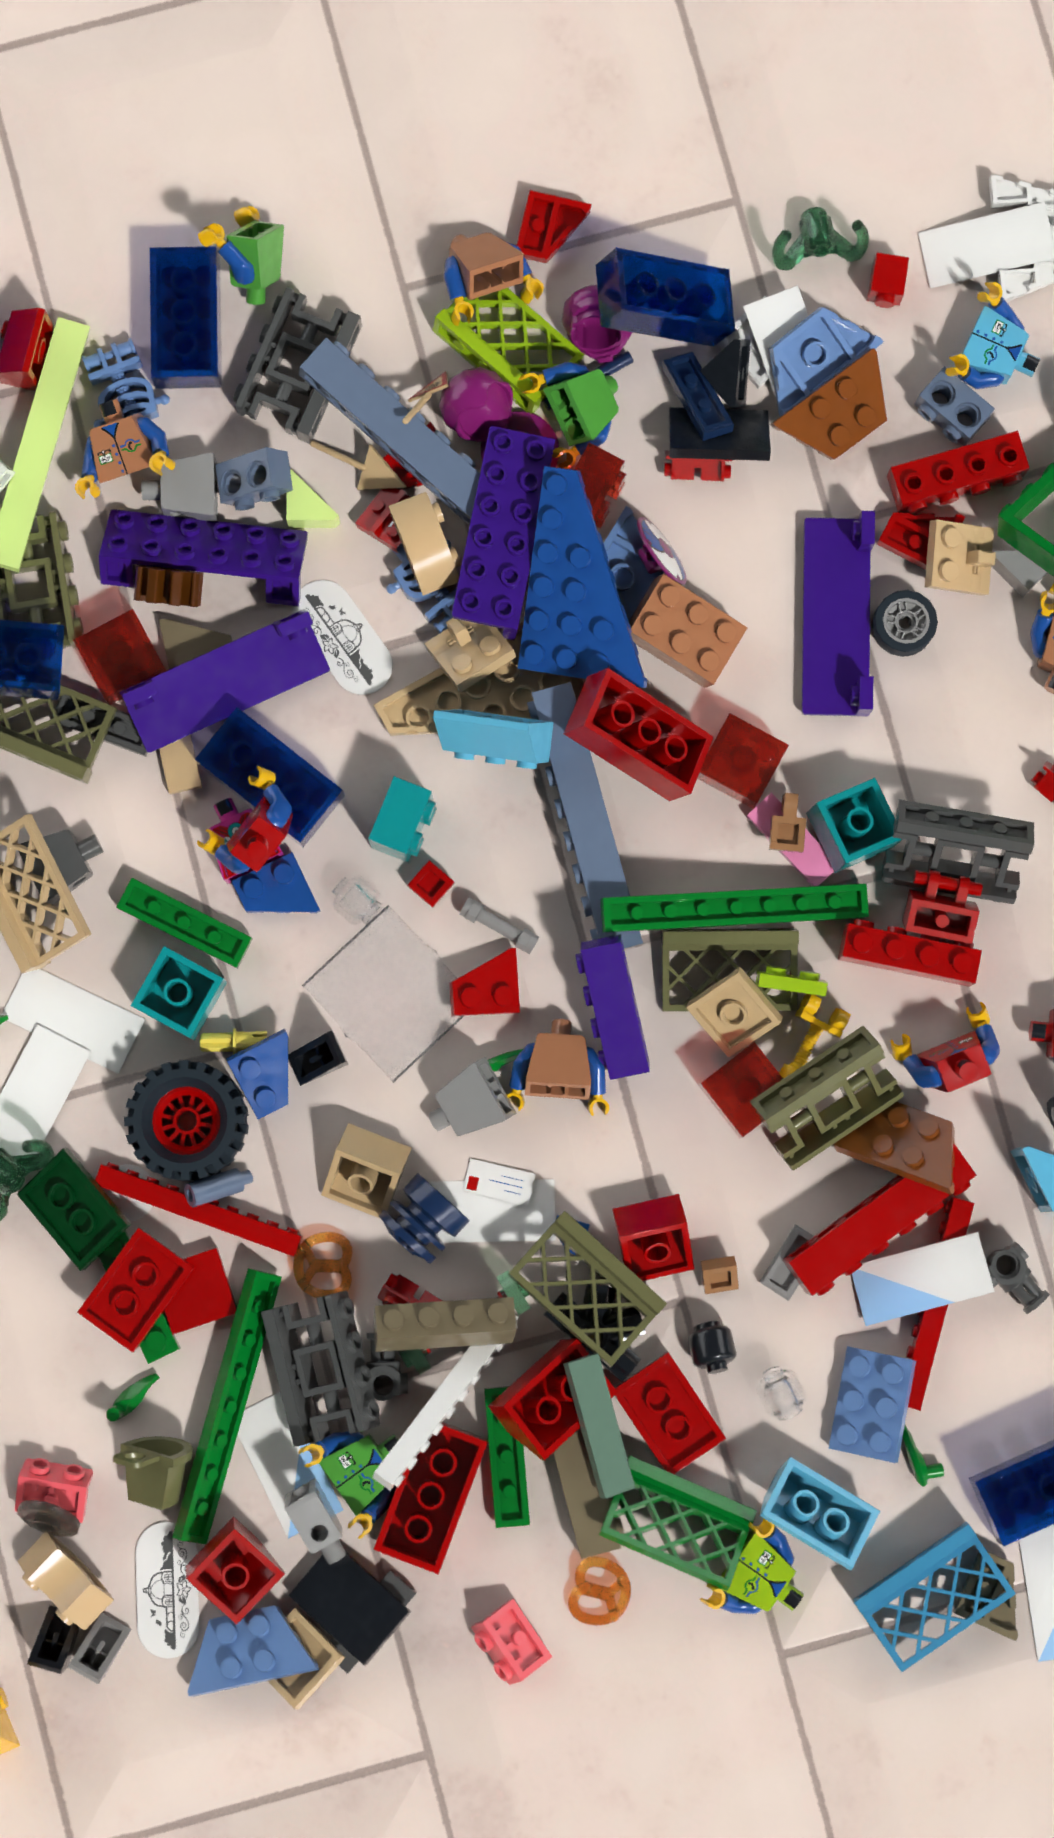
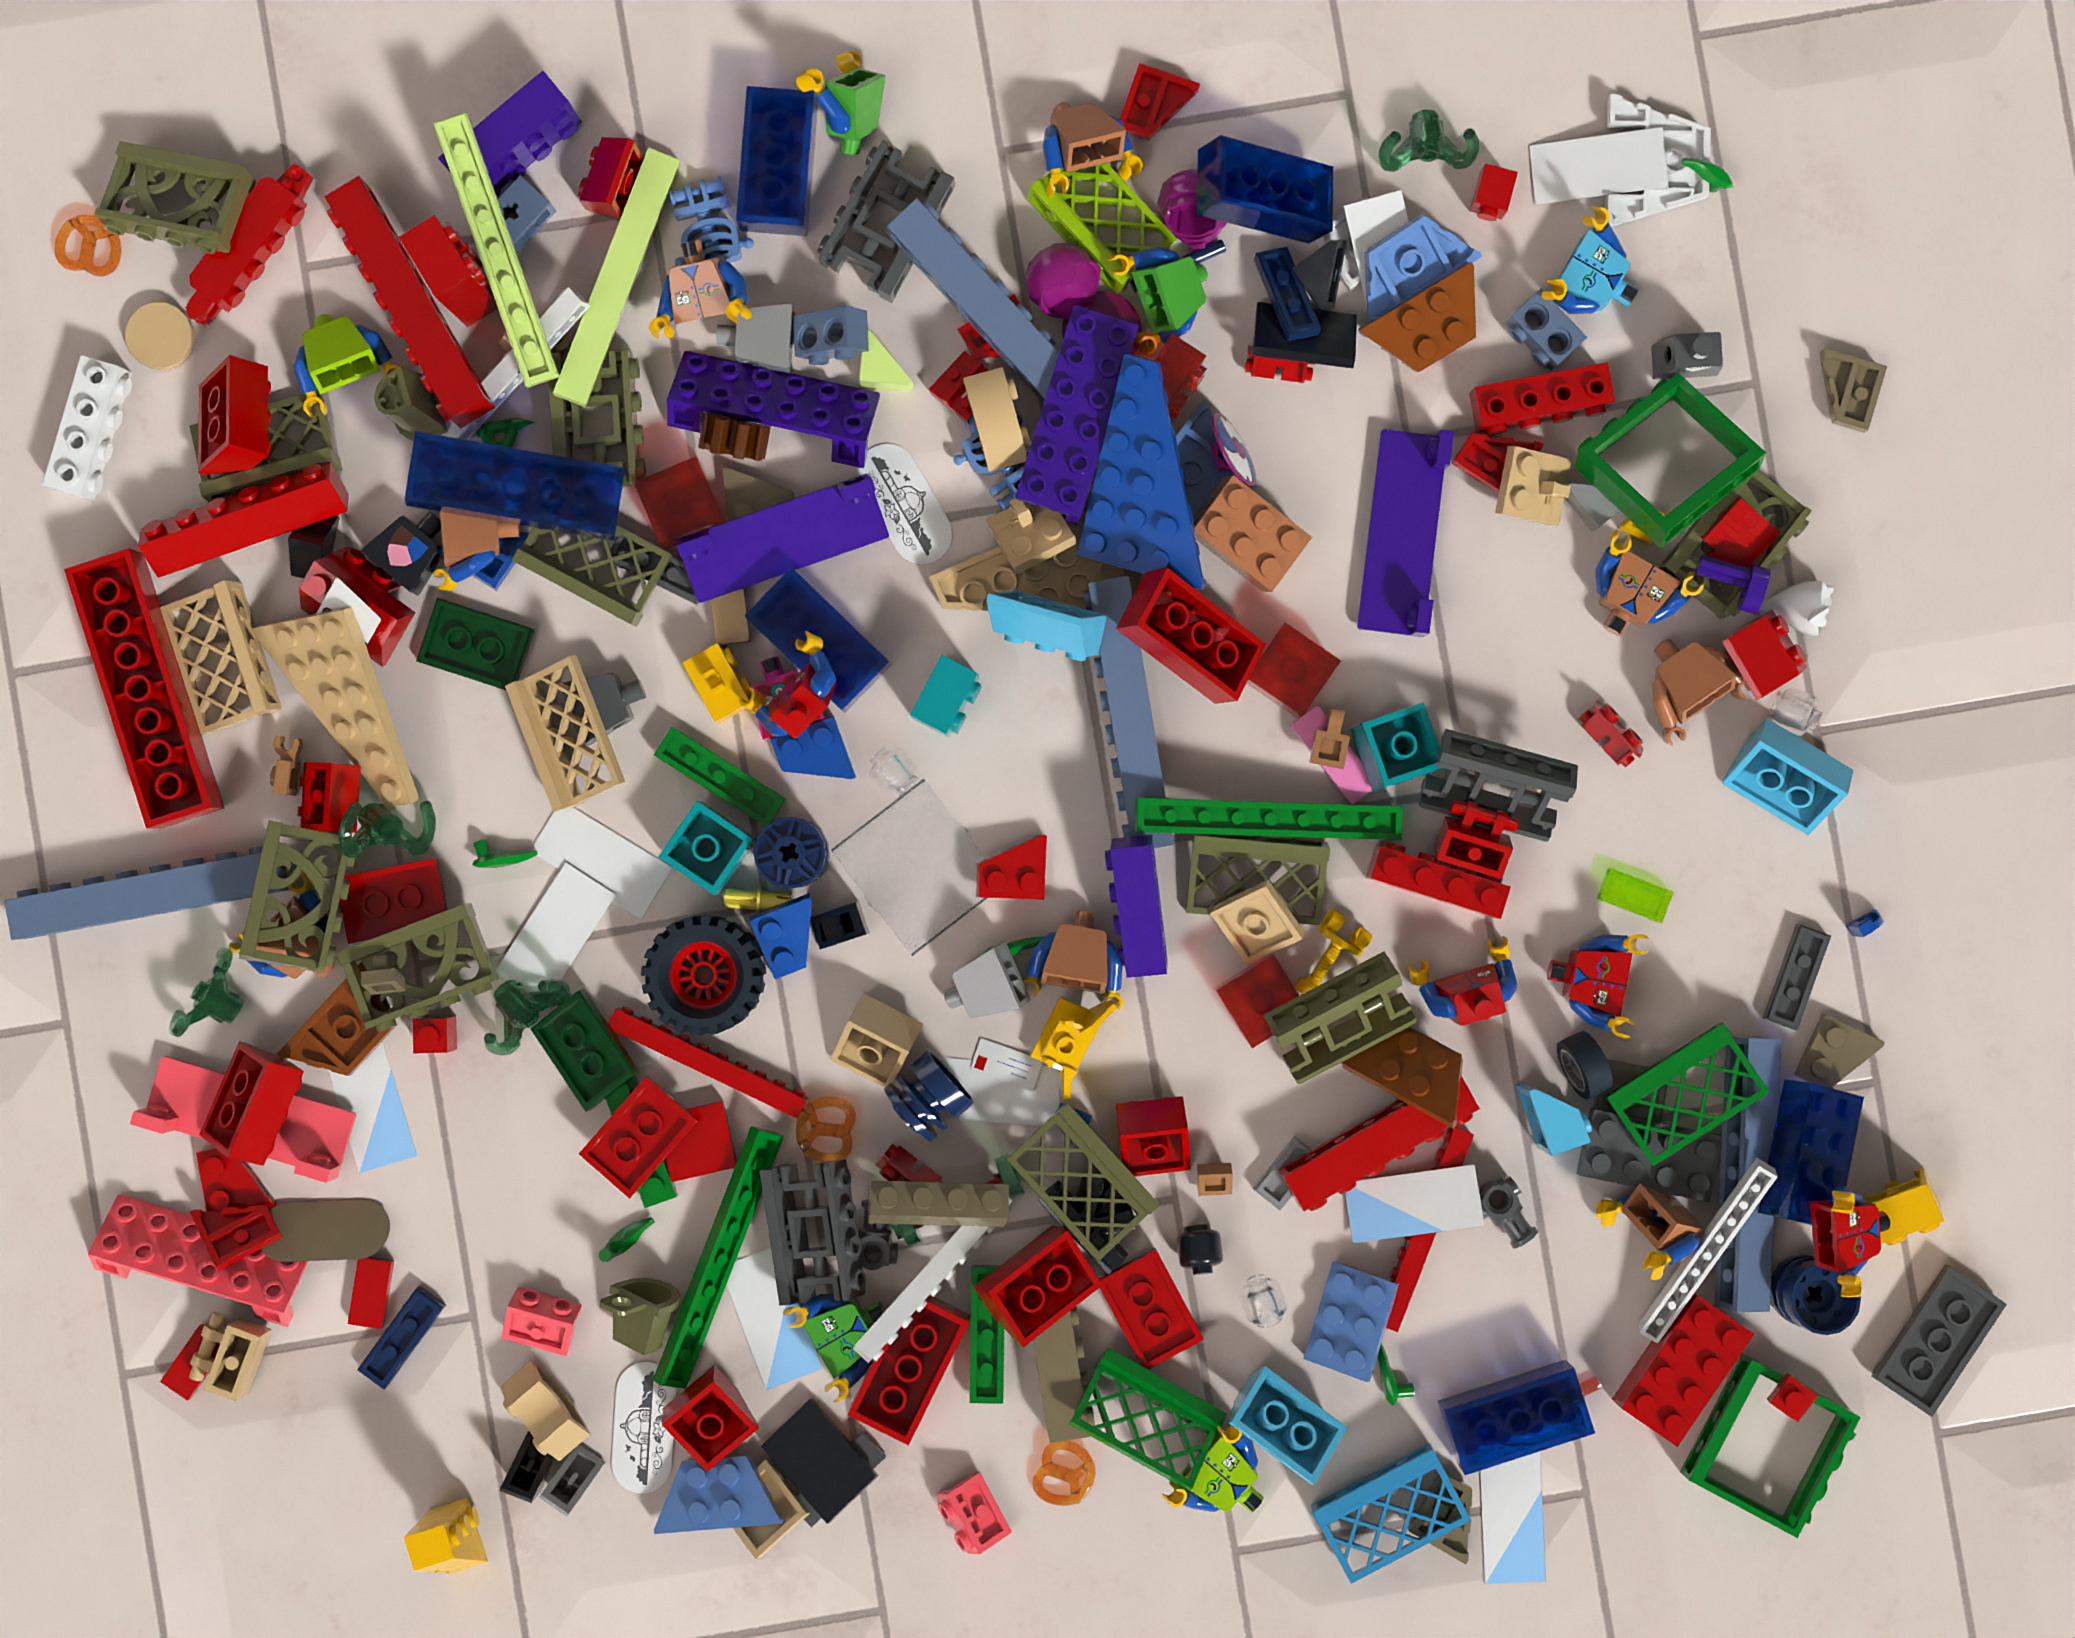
camera: 10 degrees right, 5 degrees up
(48, 1518) = (533, 1350): clear smoke wheel -> none
(174, 830) = (718, 681): none -> yellow brick
(216, 1186) = (727, 1042): sand blue cylinder -> none
(269, 1008) = (810, 846): none -> dark blue wheel
(308, 1508) = (793, 1378): light grey torso -> none
(375, 470) = (953, 339): tan piece -> none
(425, 394) = (1024, 256): tan piece -> none
(431, 884) = (968, 762): red plate -> none
(524, 940) = (1009, 793): light grey bar -> none
(557, 1147) = (1068, 1038): none -> yellow piece
(599, 1425) = (1080, 1317): sand green tile -> none
(806, 982) = (1330, 901): lime plate -> none
(921, 622) = (1488, 546): wheel -> none

